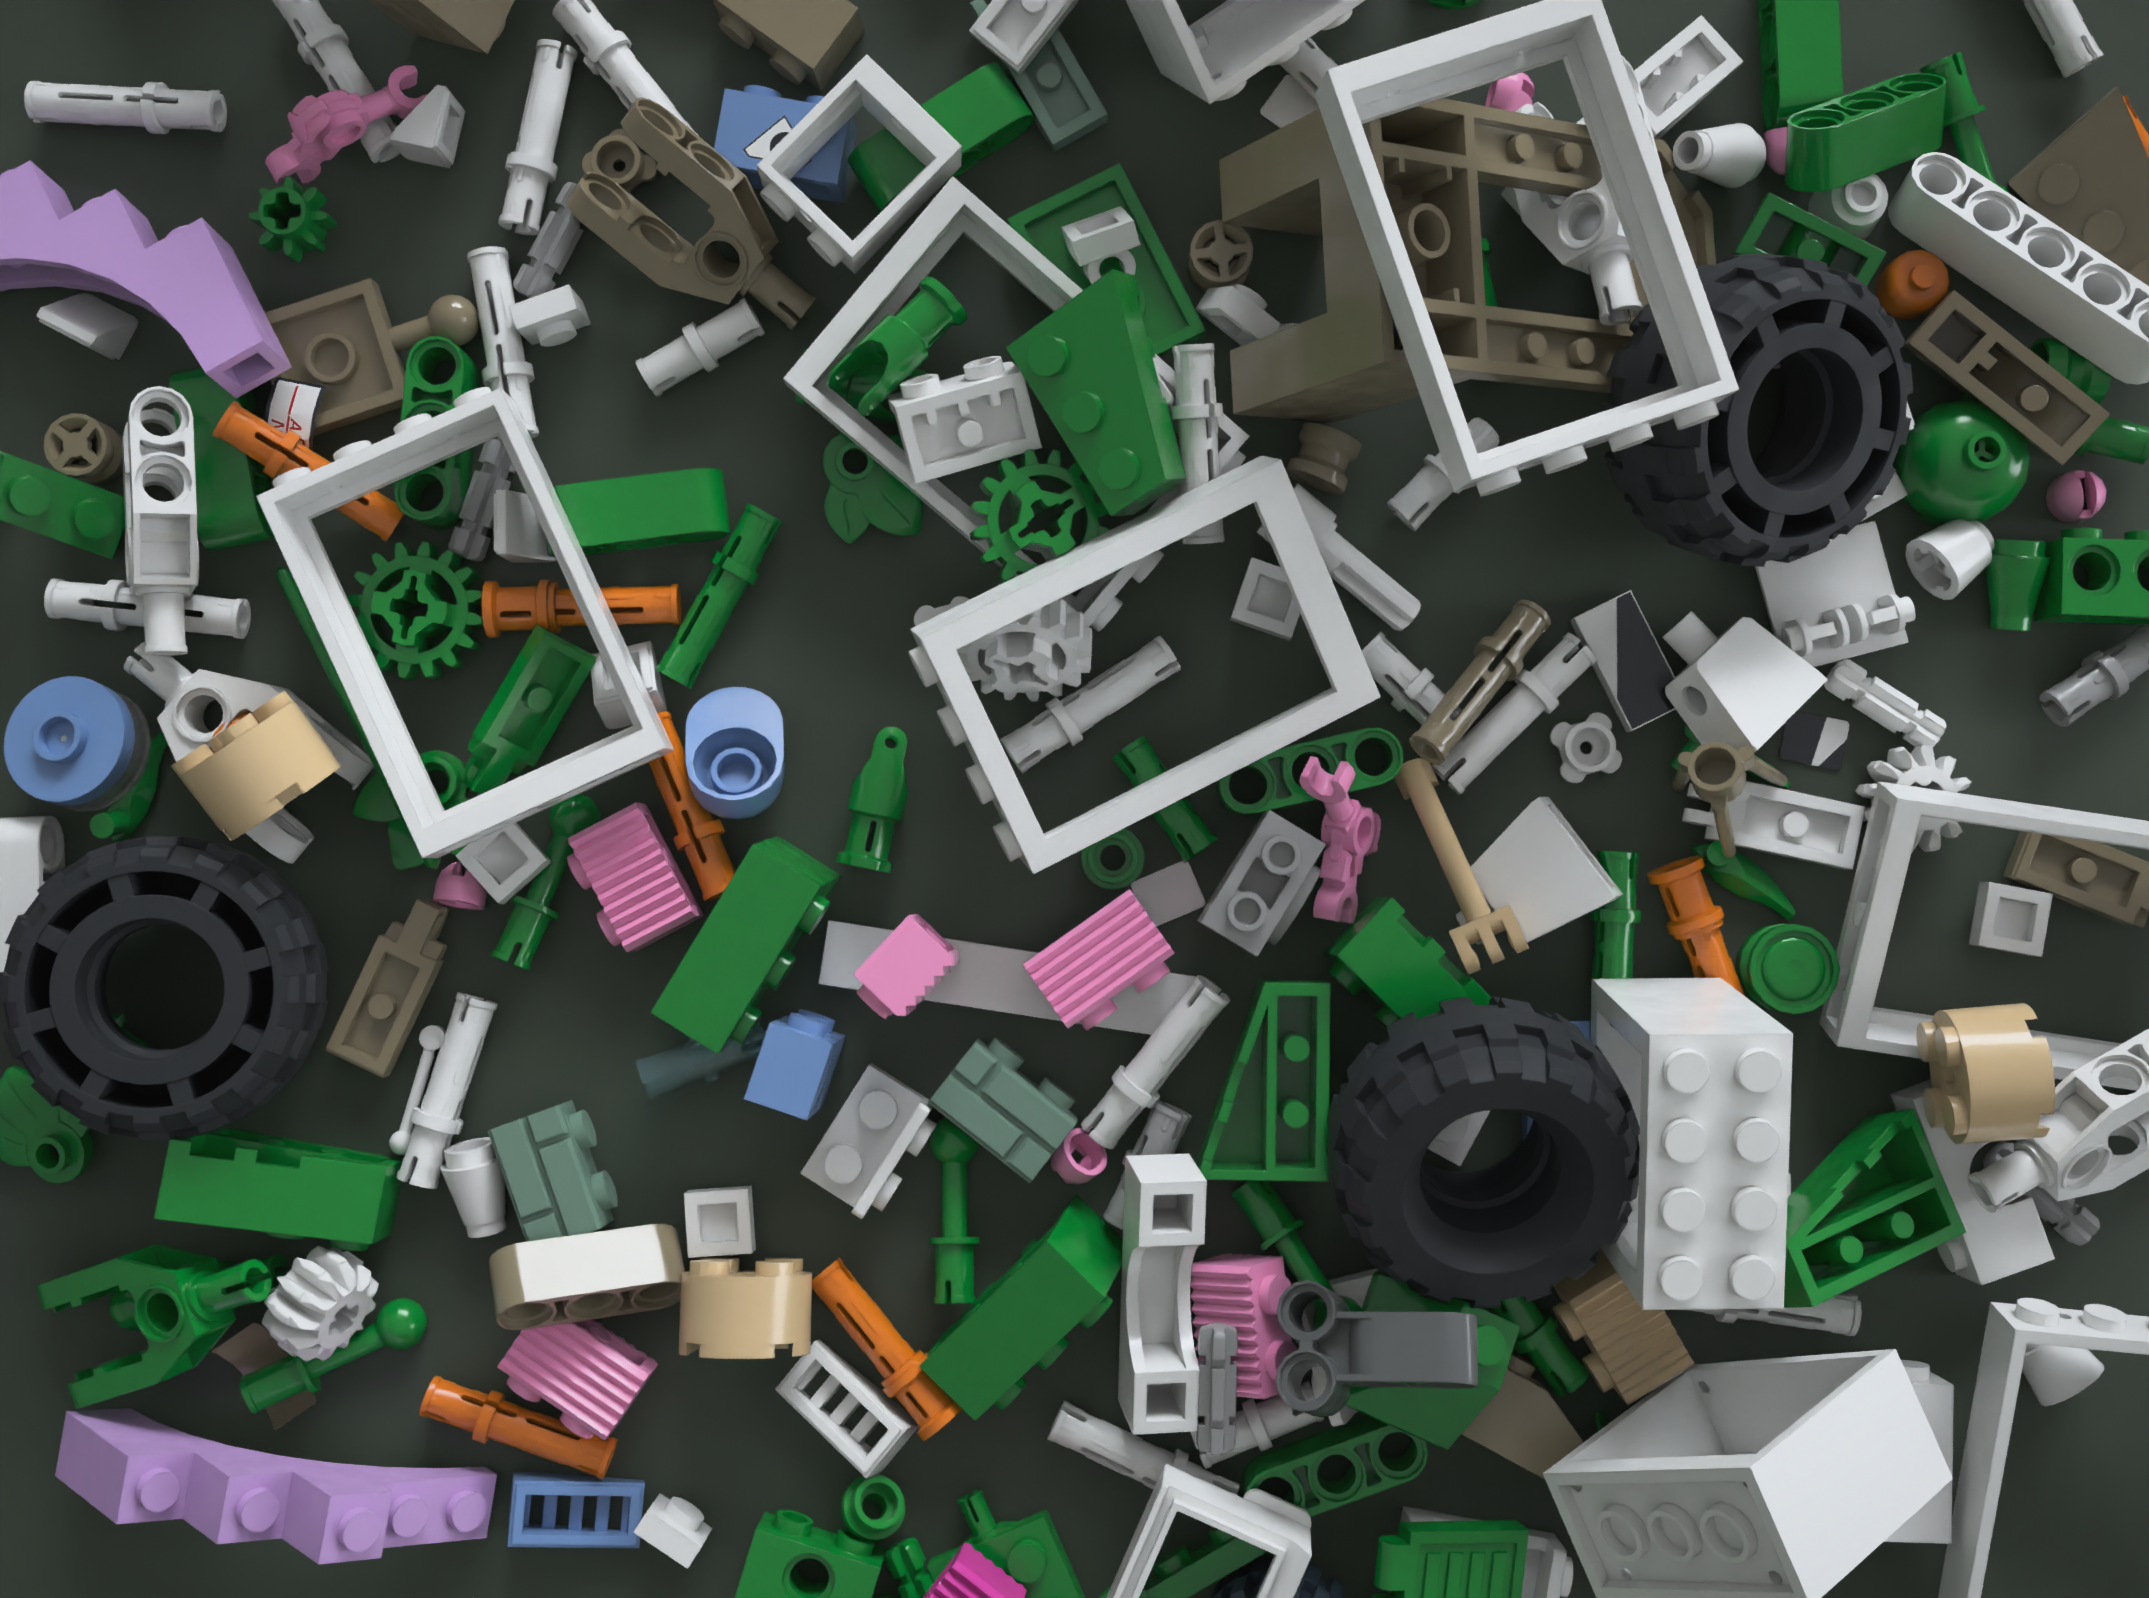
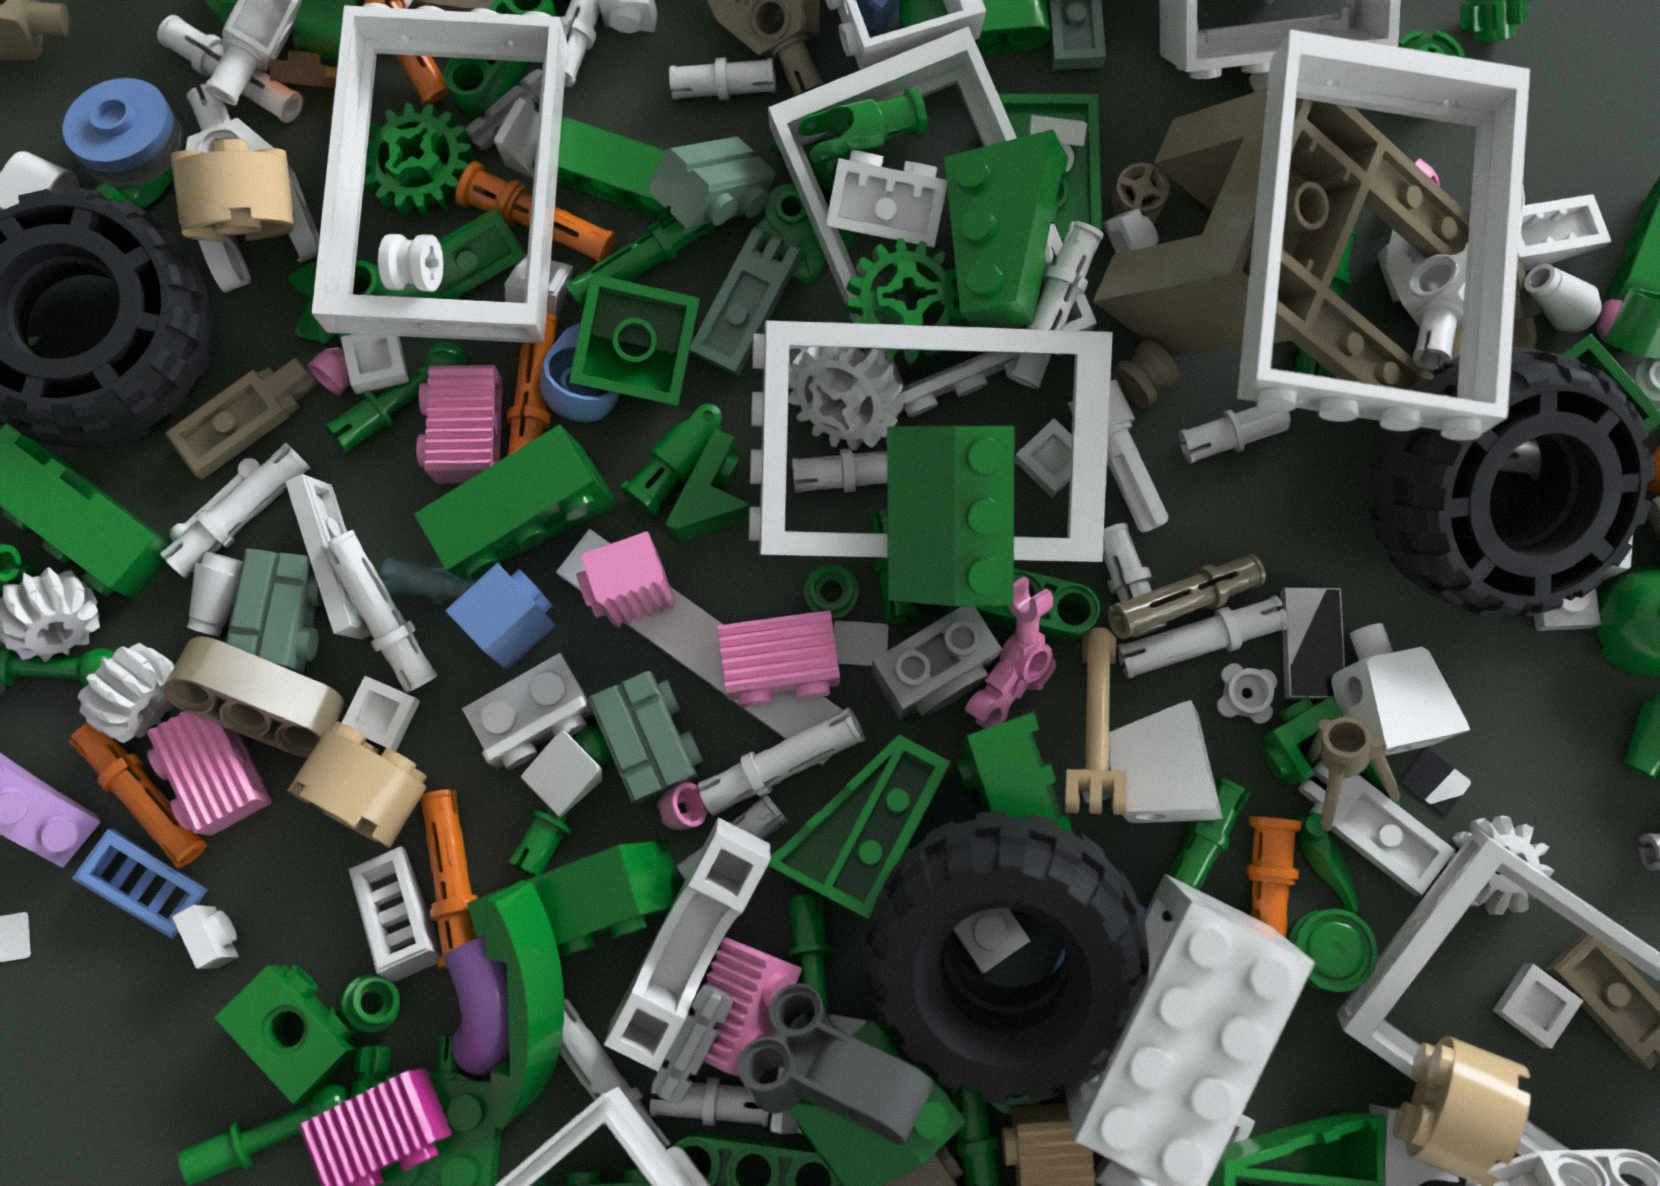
camera: 25 degrees right, 10 degrees down
(234, 574) = (303, 69): none -> clear orange plate
(454, 1337) = (127, 693): none -> white gear
(495, 748) = (410, 262): none -> white wheel
(578, 1088) = (319, 523): none -> white tile
(683, 1134) = (379, 612): none -> white pin
(760, 483) = (712, 182): none -> sand green brick
(770, 701) = (634, 340): none -> green slope
(861, 593) = (745, 302): none -> sand green hinge
(933, 838) = (702, 504): none -> green slope
(942, 1190) = (562, 774): none -> white slope
(996, 1453) = (482, 995): none -> medium lavender cylinder
(1007, 1383) = (523, 938): none -> green slope
(1209, 737) = (950, 515): none -> green slope
(1654, 756) = (1299, 723): none -> green bracket
(1836, 600) = (1504, 673): white hinge -> none
(1884, 704) = (1507, 779): white axle -> none
(1950, 556) = (1613, 688): white hat -> none

